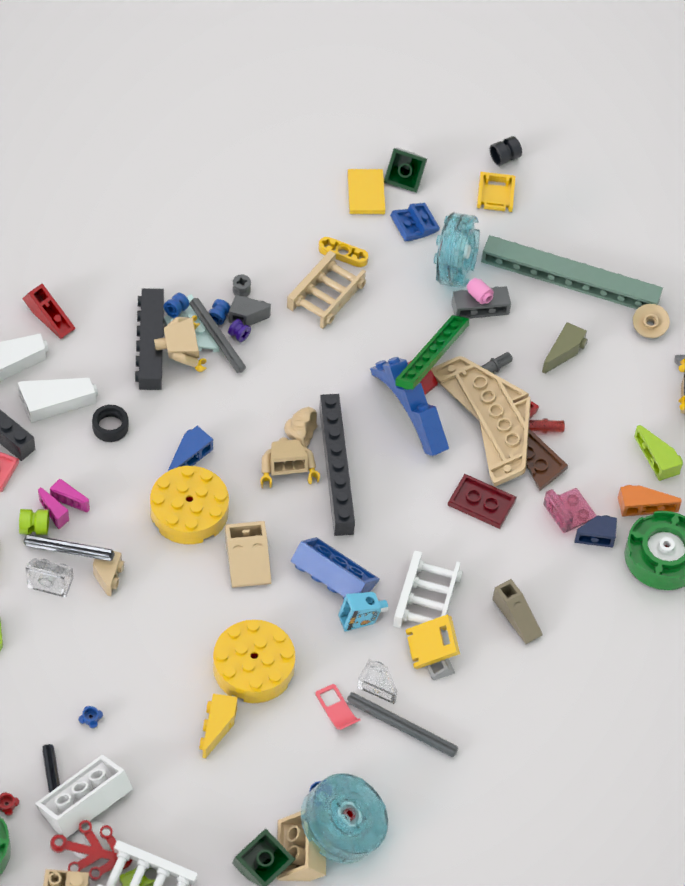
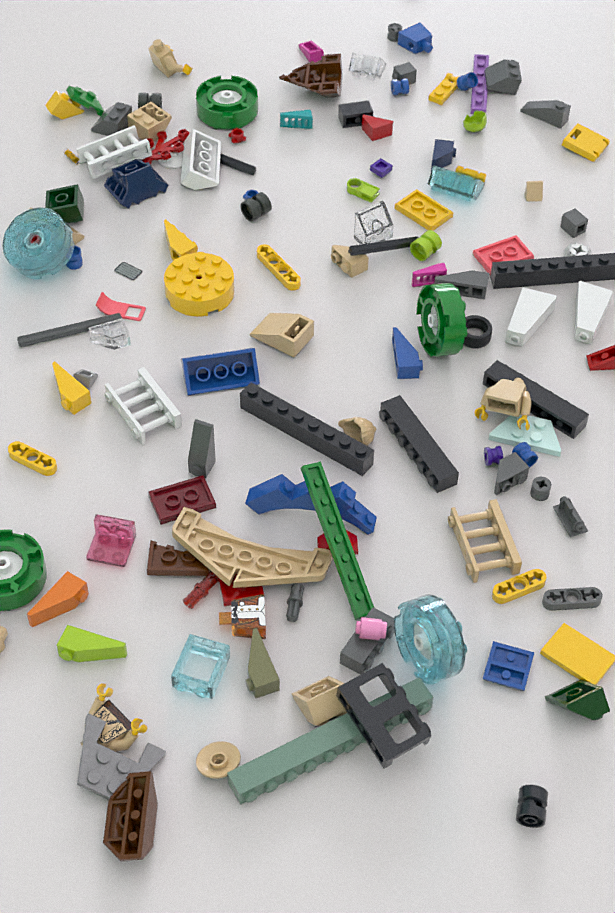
camera: 135 degrees right, 5 degrees down
(55, 463) = (469, 283): none -> dark grey slope
(57, 511) = (420, 259): dark pink slope -> none
(114, 694) = (255, 206): none -> pearl dark grey wheel
(141, 427) = (441, 319): none -> green piece
(164, 623) = (285, 278): none -> yellow beam
(169, 831) = (134, 182): none -> dark blue slope
(176, 305) = (551, 424): blue wheel -> none
(189, 504) = (357, 327): yellow piece -> none
(217, 335) = (518, 437): dark grey axle -> none
(251, 254) = (569, 517): none -> dark grey hinge
(275, 384) = (418, 444): none -> black brick
(284, 745) = (128, 270): none -> sticker
(287, 458) = (338, 401): tan torso -> none
(319, 211) = (565, 604): none -> dark grey beam
(360, 610) = (169, 355): medium azure torso -> none
(427, 641) = (101, 375): yellow container -> none
(437, 504) = (202, 449): none -> dark grey slope
(468, 660) = (72, 393): none -> yellow slope
(496, 196) = (486, 760): yellow container -> none
(516, 610) = (71, 441): dark tan slope -> none
(537, 380) = (245, 616): none -> torso
(549, 242) = (371, 719): none -> black window
(549, 298) = (320, 701): none -> tan slope
(555, 623) = (36, 465): none -> yellow beam
(587, 391) = (205, 648): none -> clear light blue window
(597, 532) = (70, 545): dark blue slope -> none

